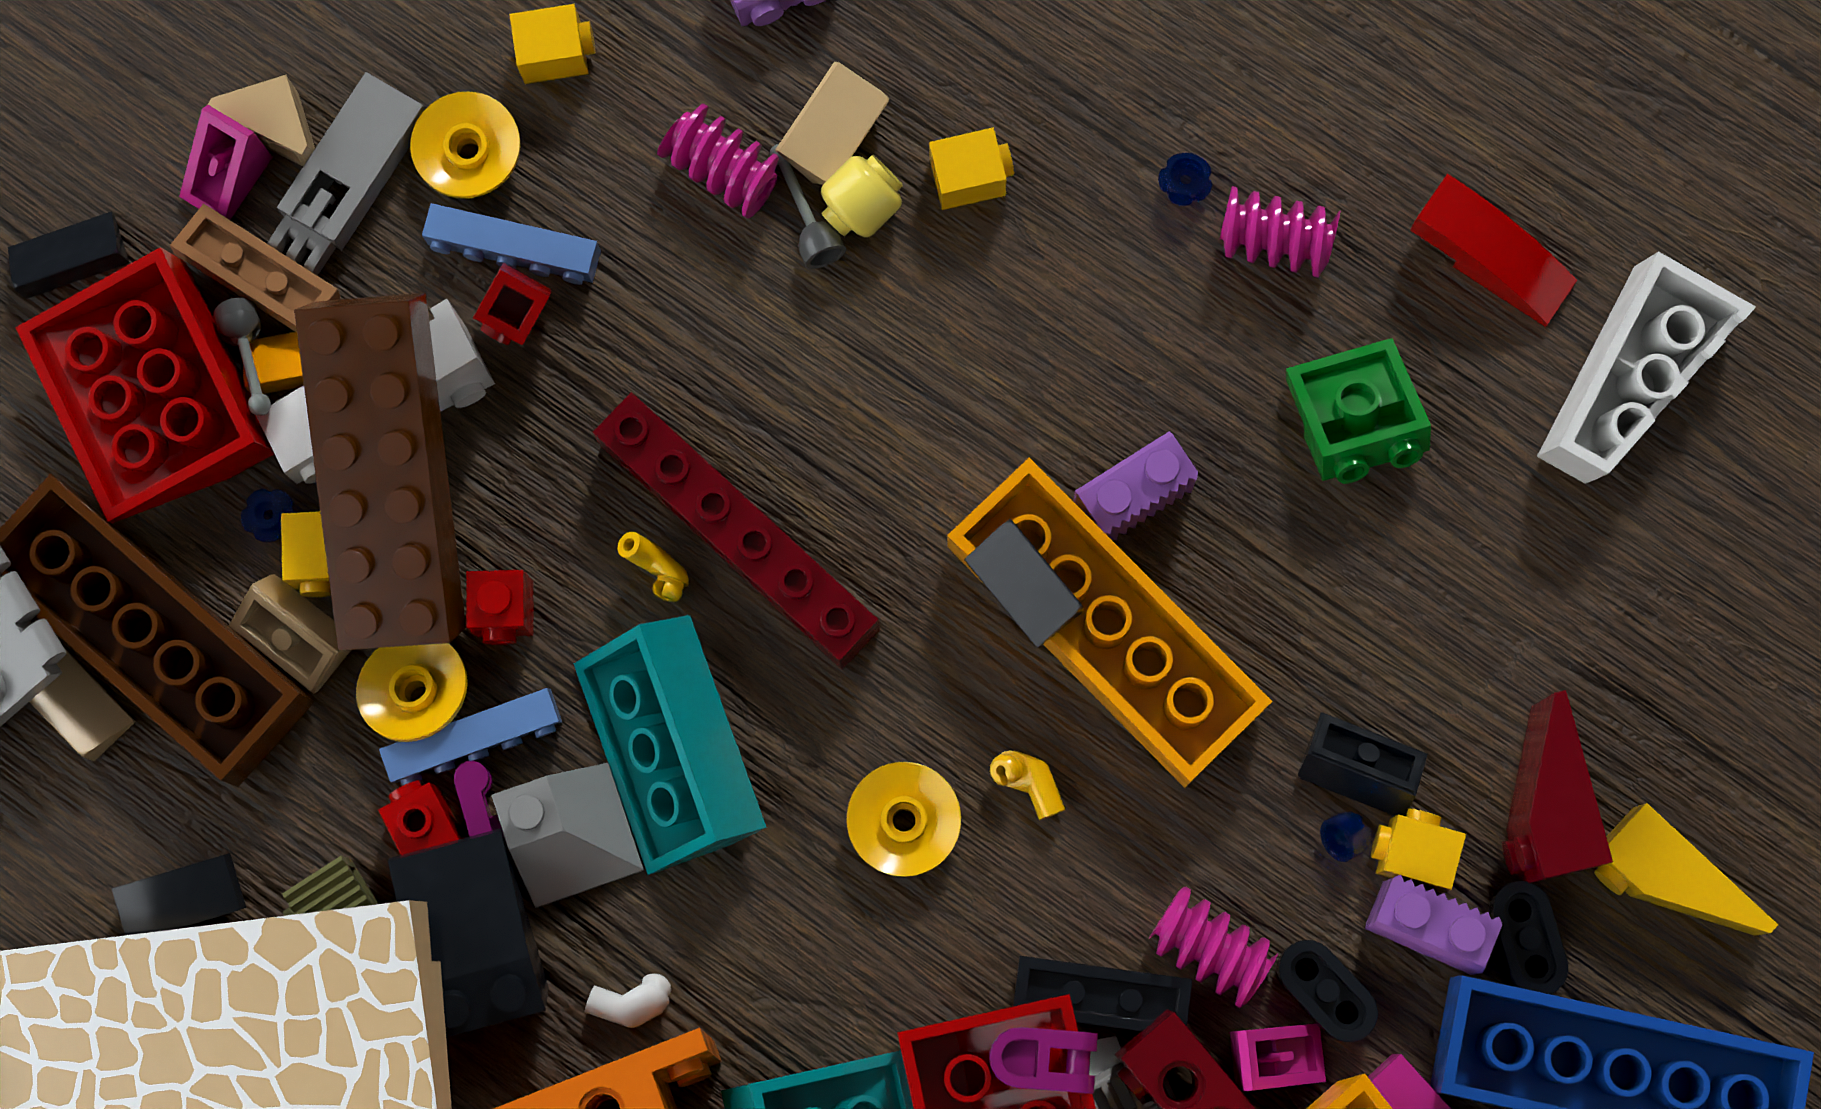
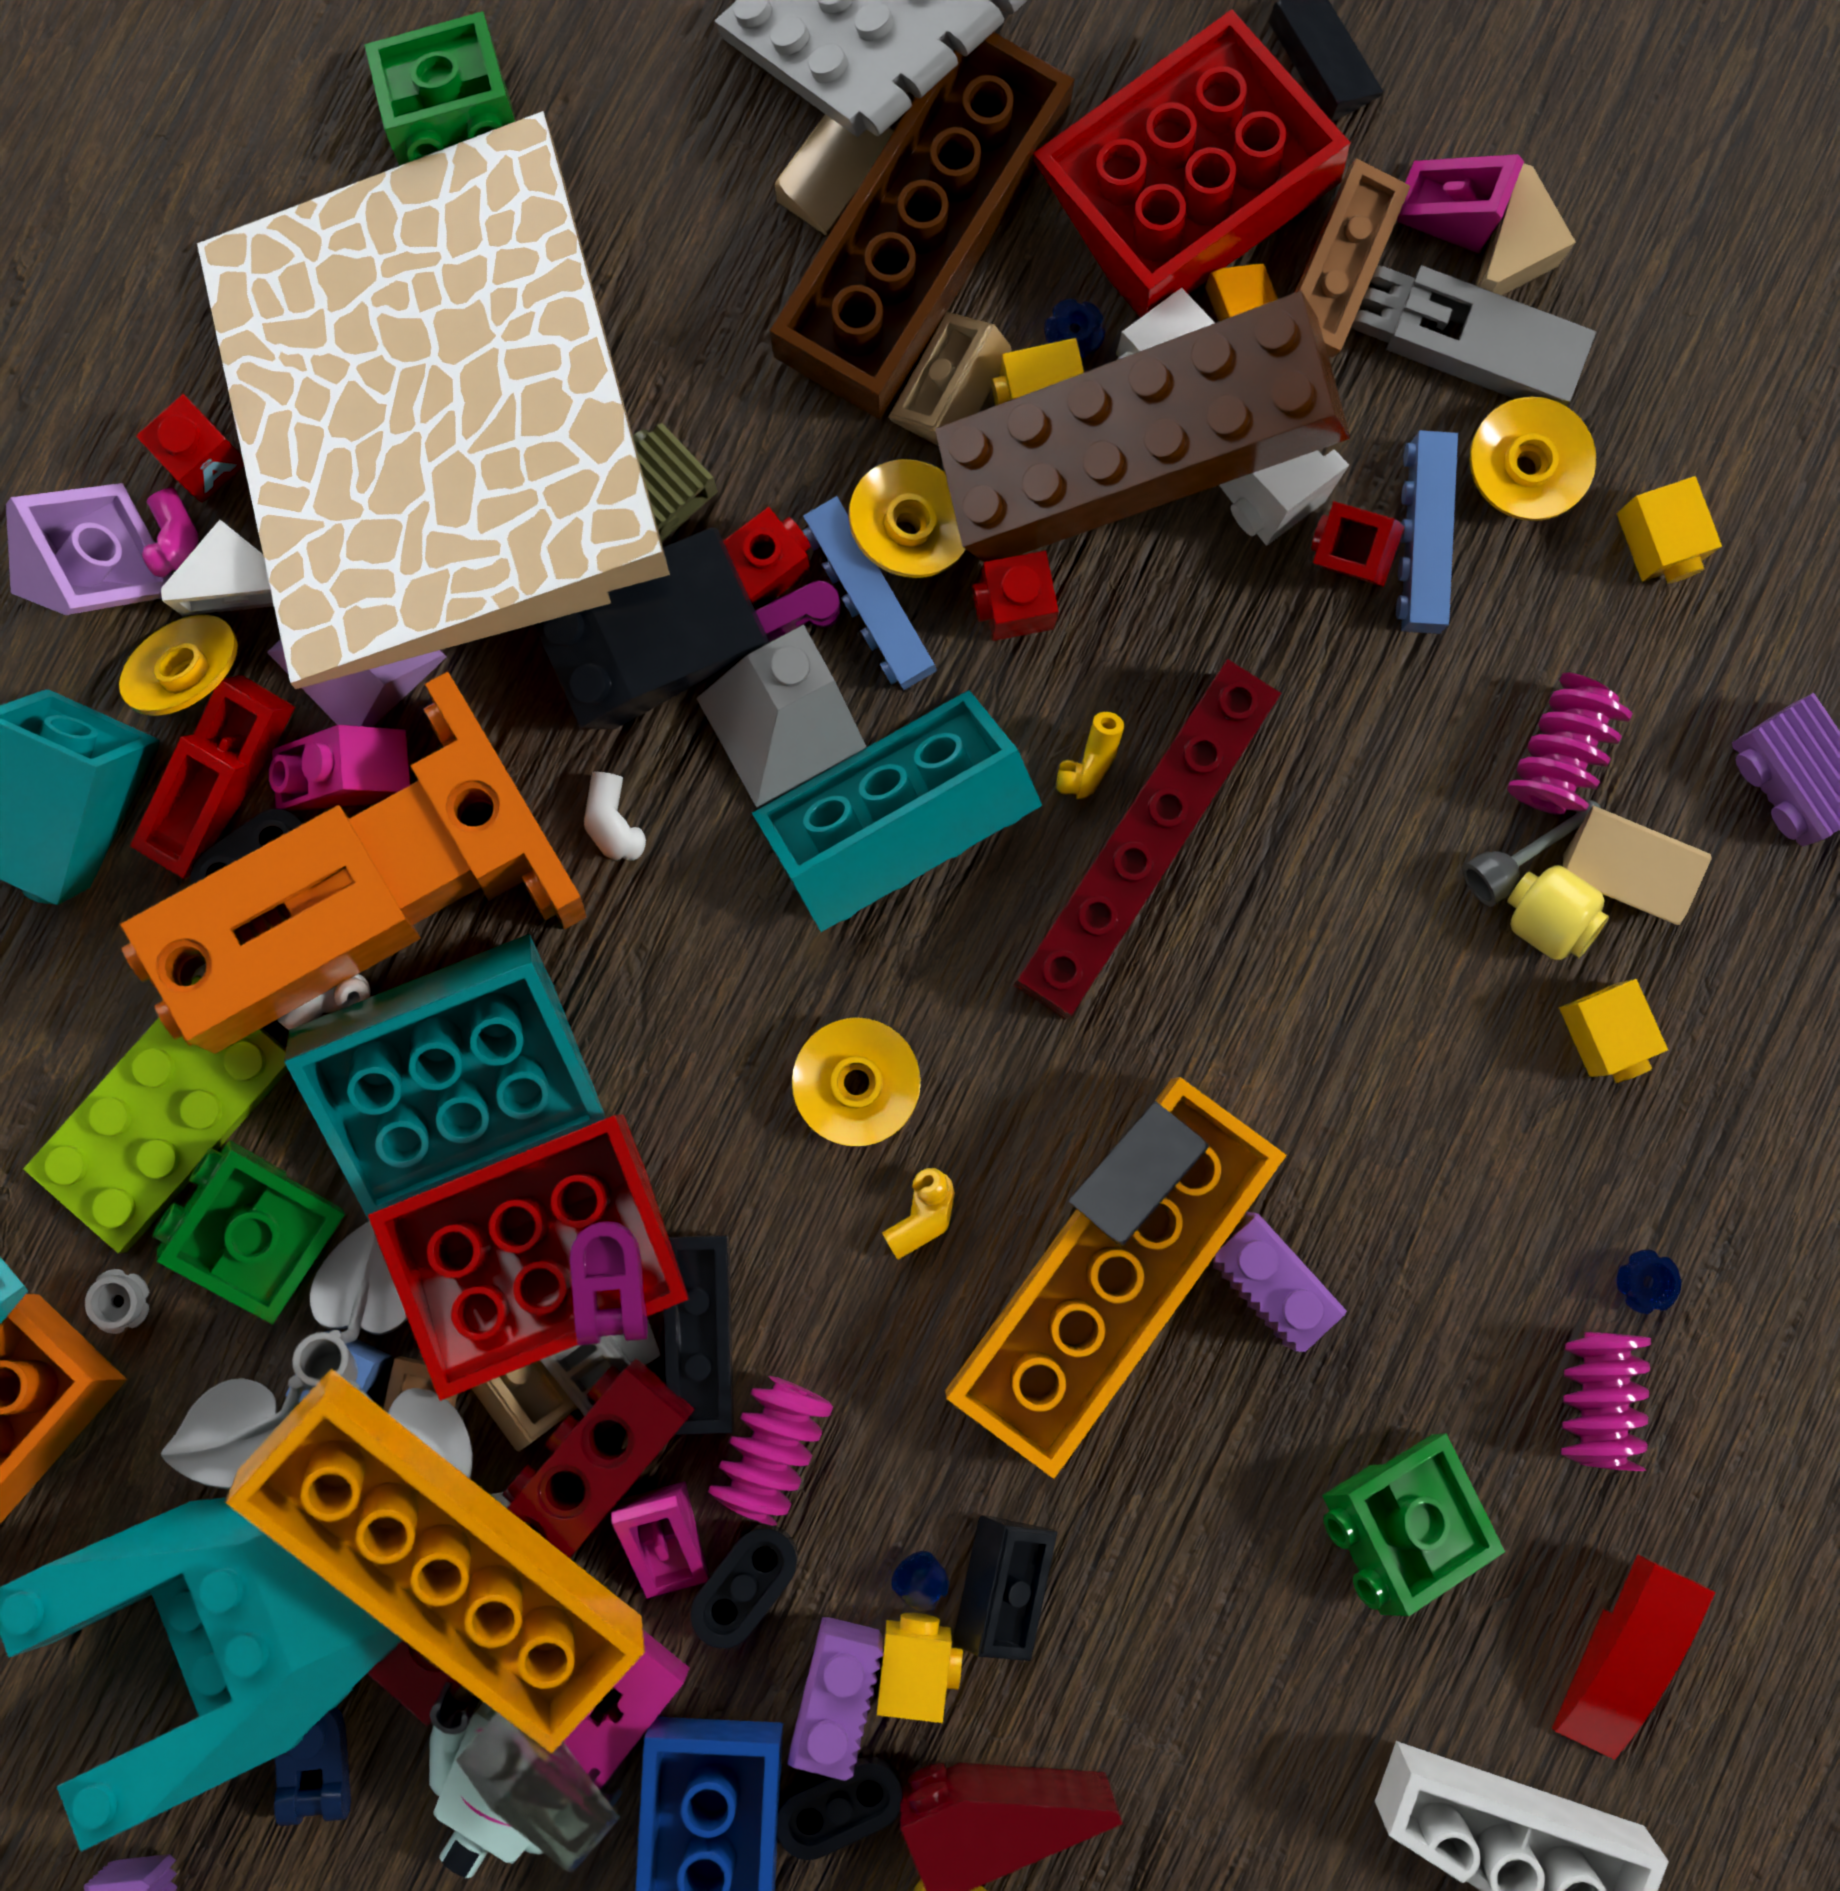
camera: 70 degrees right, 5 degrees up
(180, 896) = (643, 318): black slope -> none
(239, 325) = (1278, 253): hinge -> none

